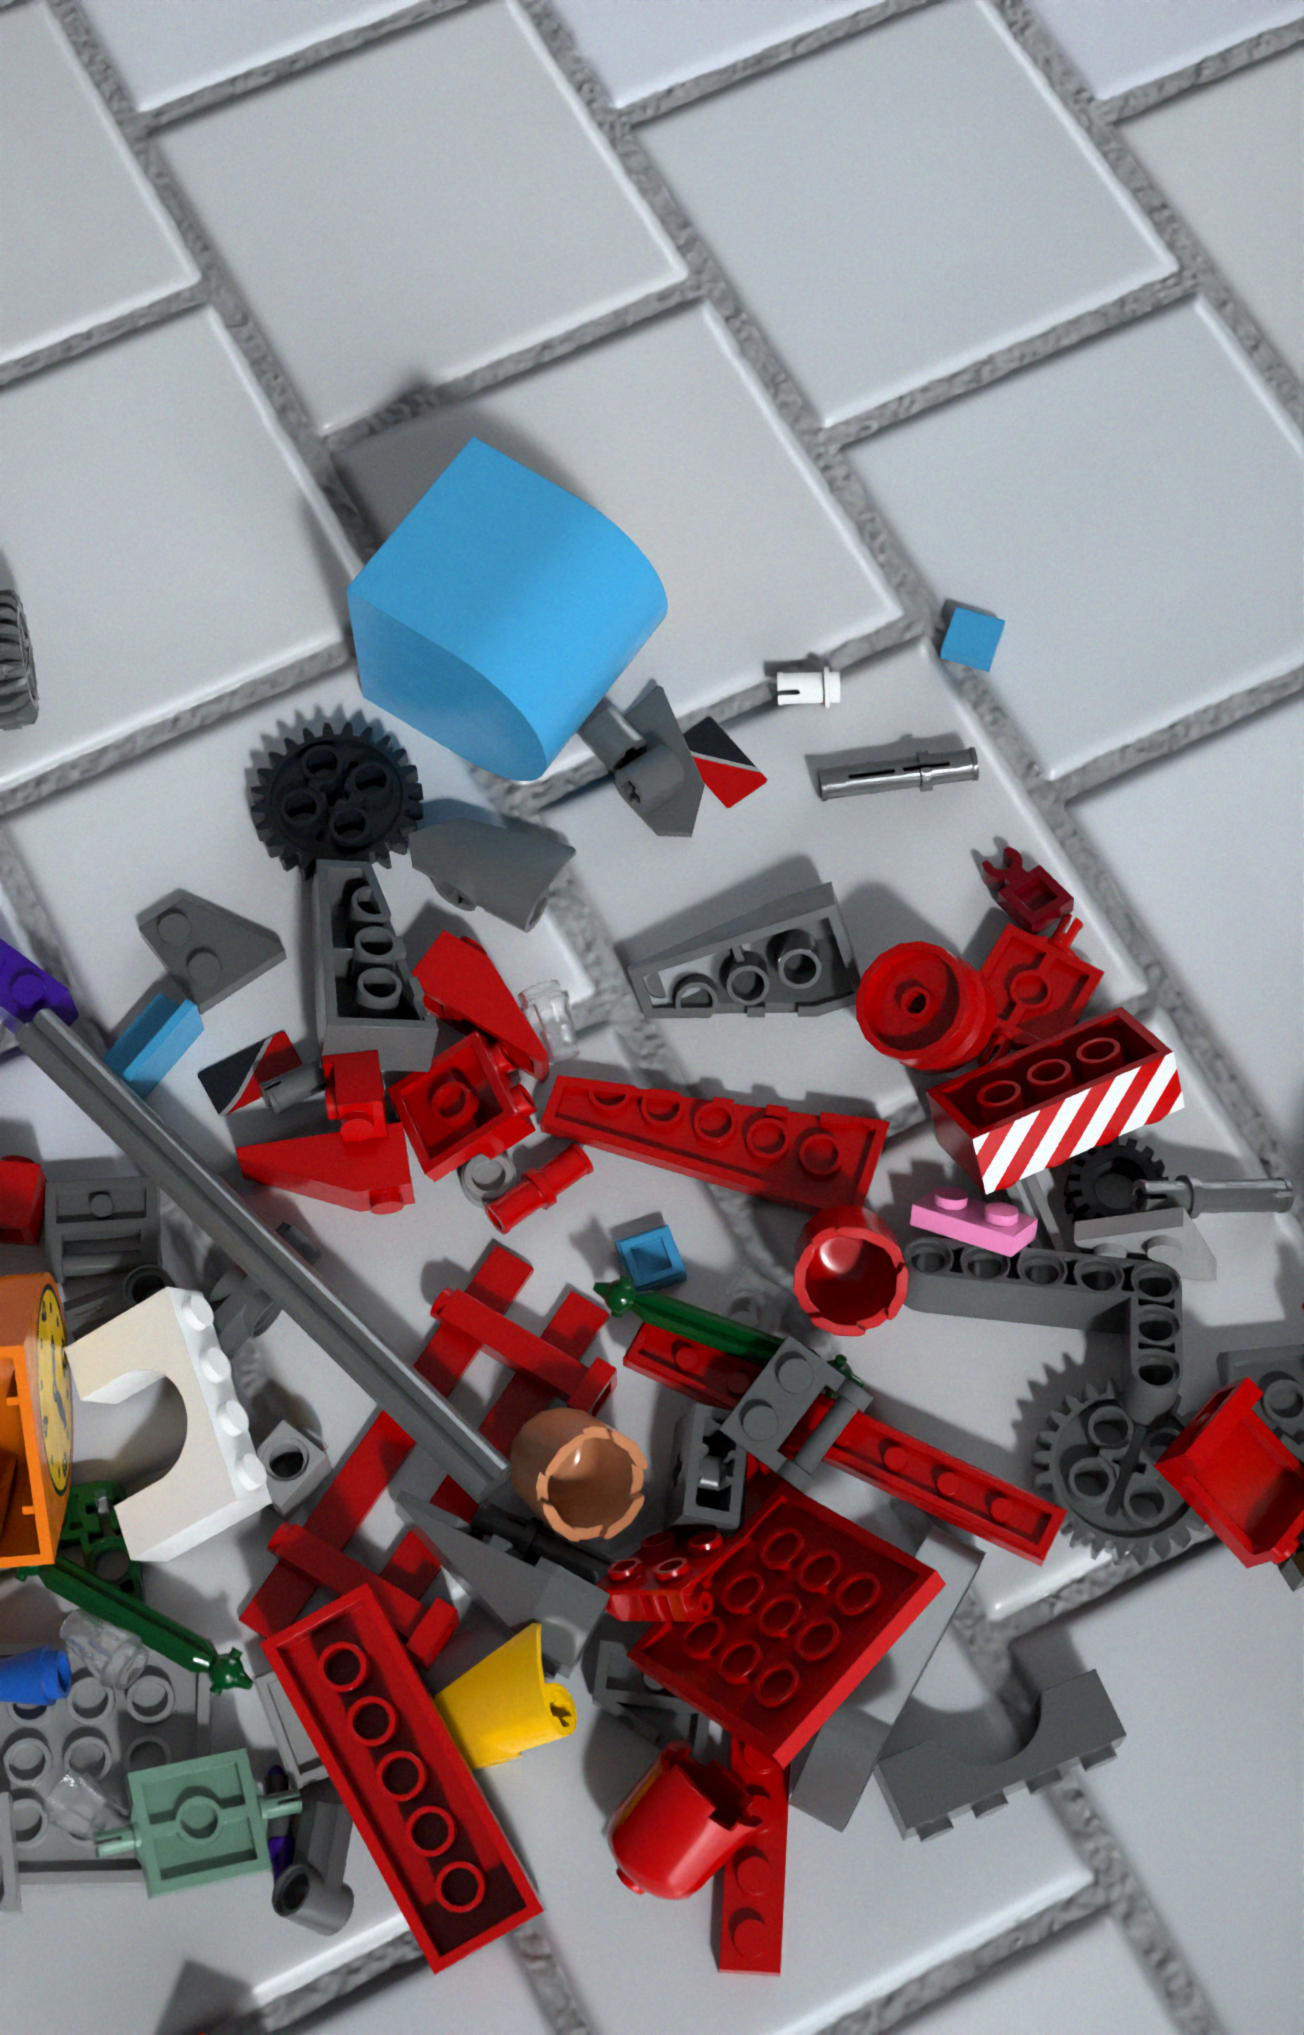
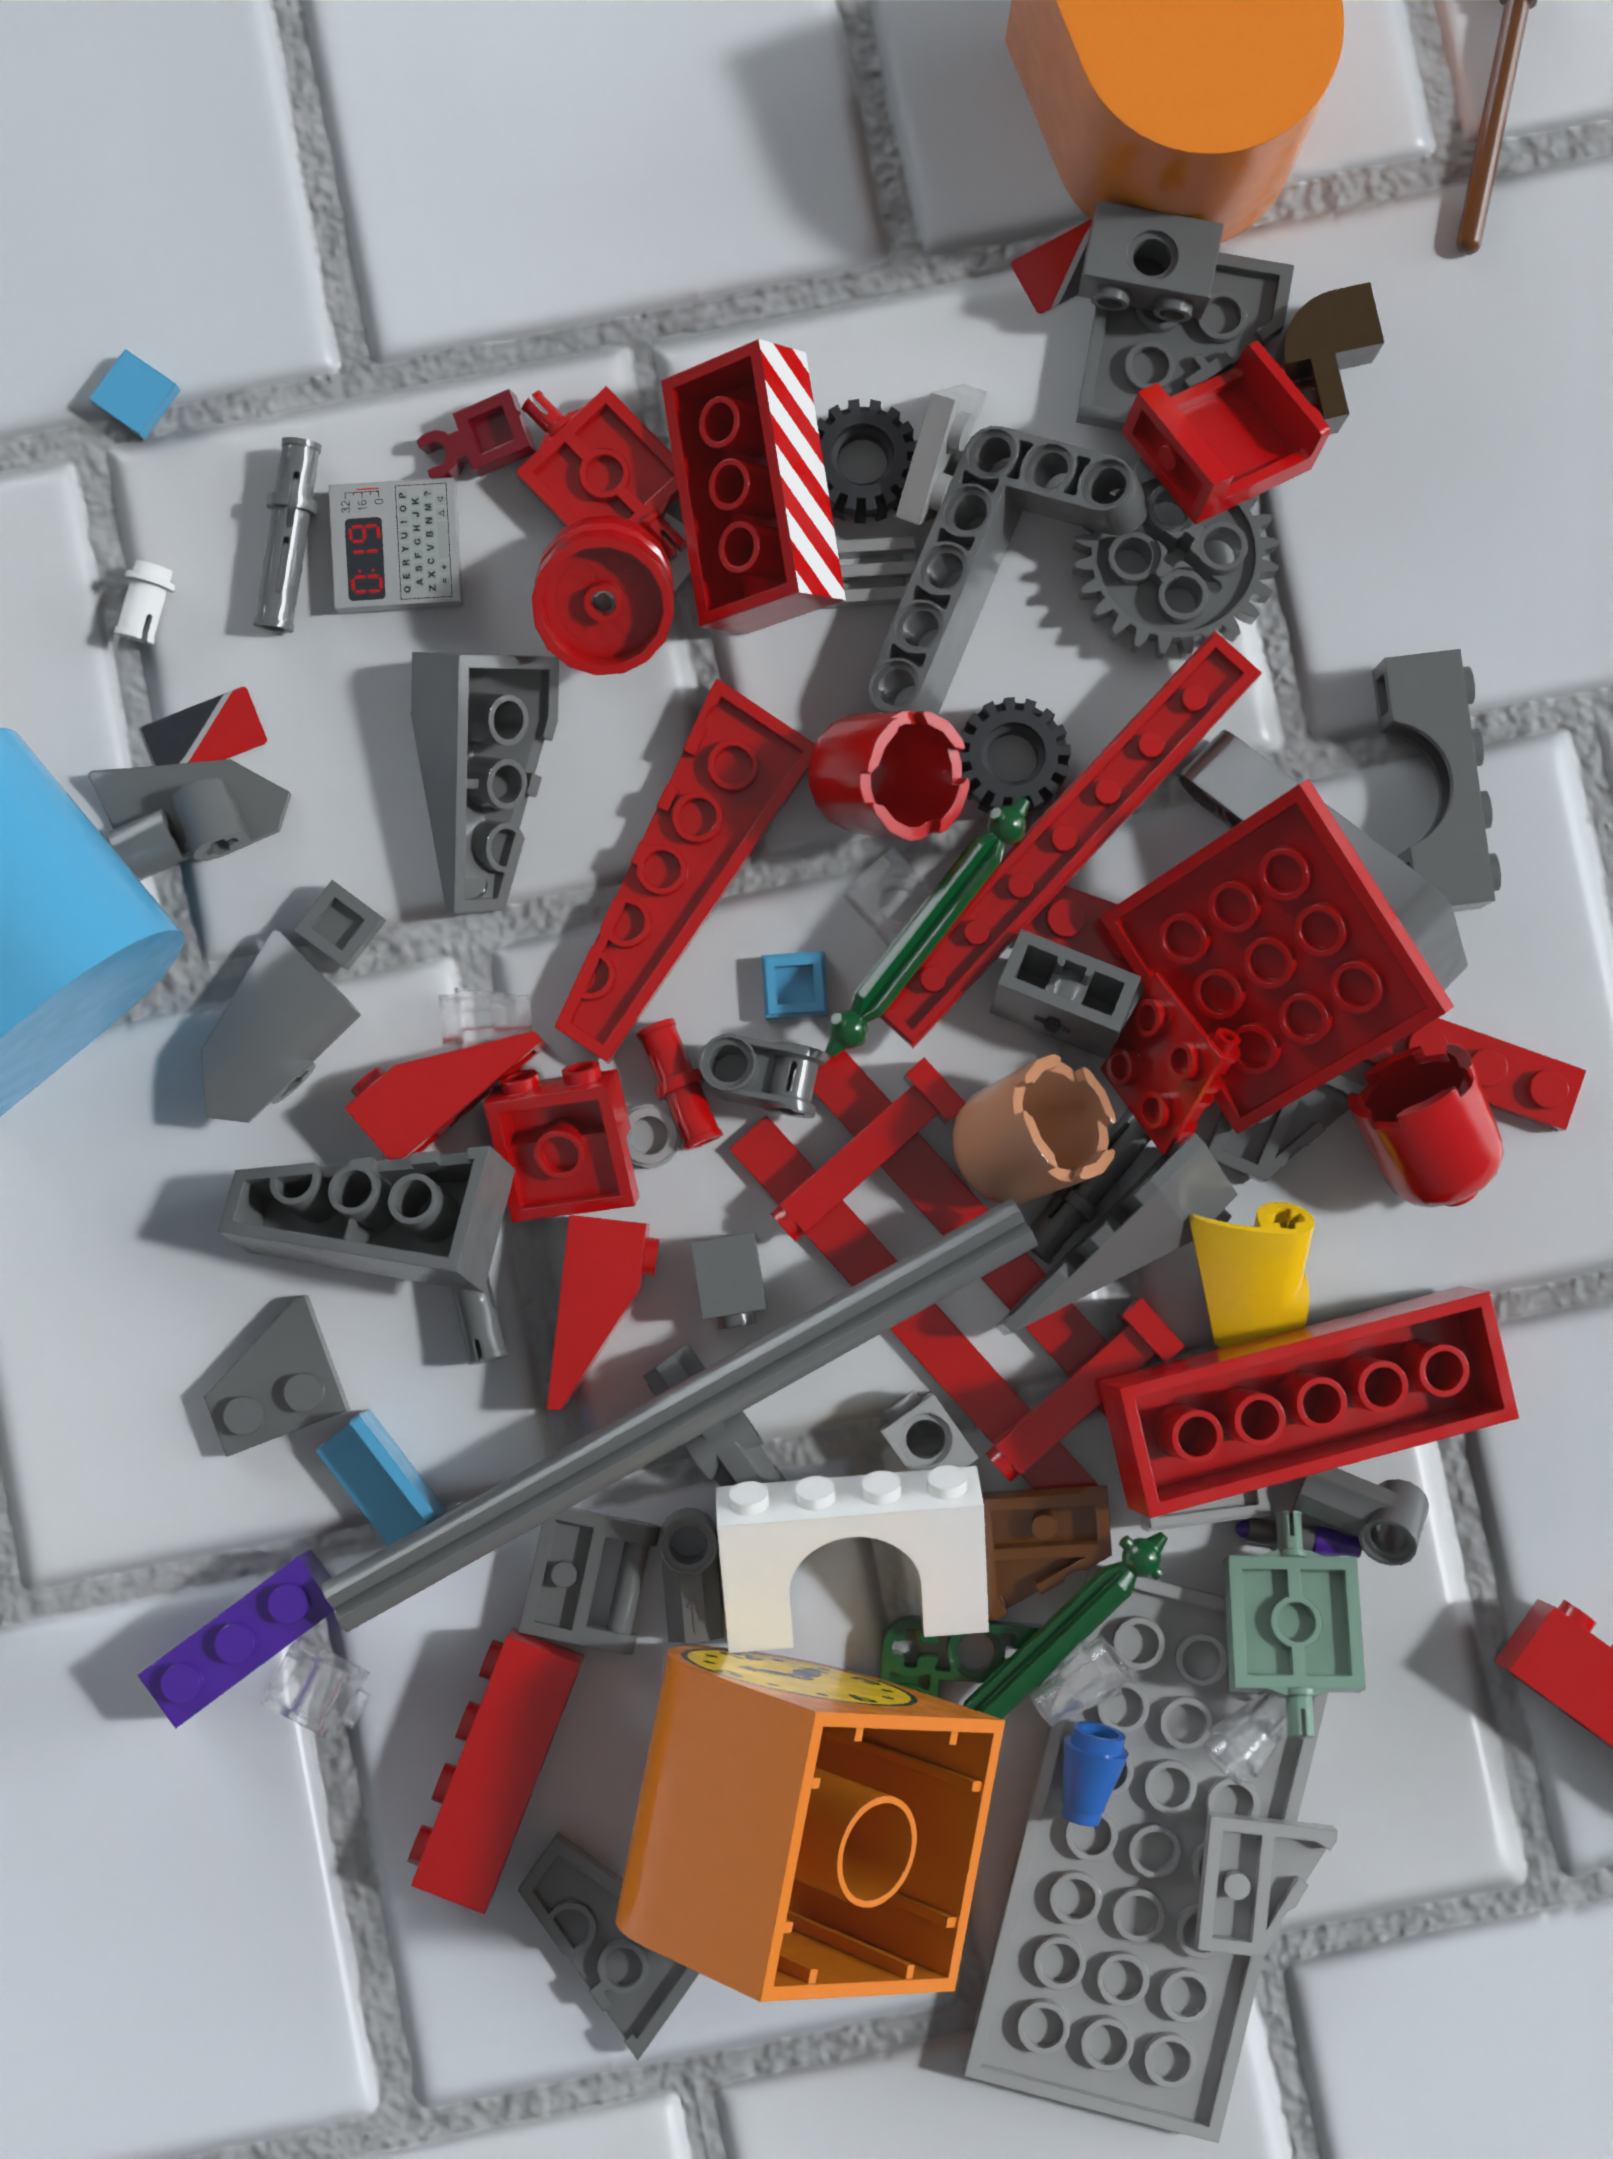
camera: 75 degrees left, 20 degrees up
(221, 1587) = (1040, 1539): none -> reddish brown wing
(236, 1079) = (439, 1369): sticker -> none
(294, 789) = (100, 1235): black gear -> none
(356, 1094) = (530, 1259): red brick -> none
(384, 1270) = (729, 1279): none -> dark grey brick
(566, 1255) = (767, 1074): none -> dark grey piece
(594, 895) = (340, 925): none -> dark grey plate
(778, 1403) = (1026, 892): dark grey plate -> none
(918, 856) = (395, 545): none -> tile
(924, 1356) = (1022, 721): none -> black tyre
(972, 1221) = (862, 624): bright pink plate -> none
(1212, 1195) = (904, 380): dark grey pin -> none

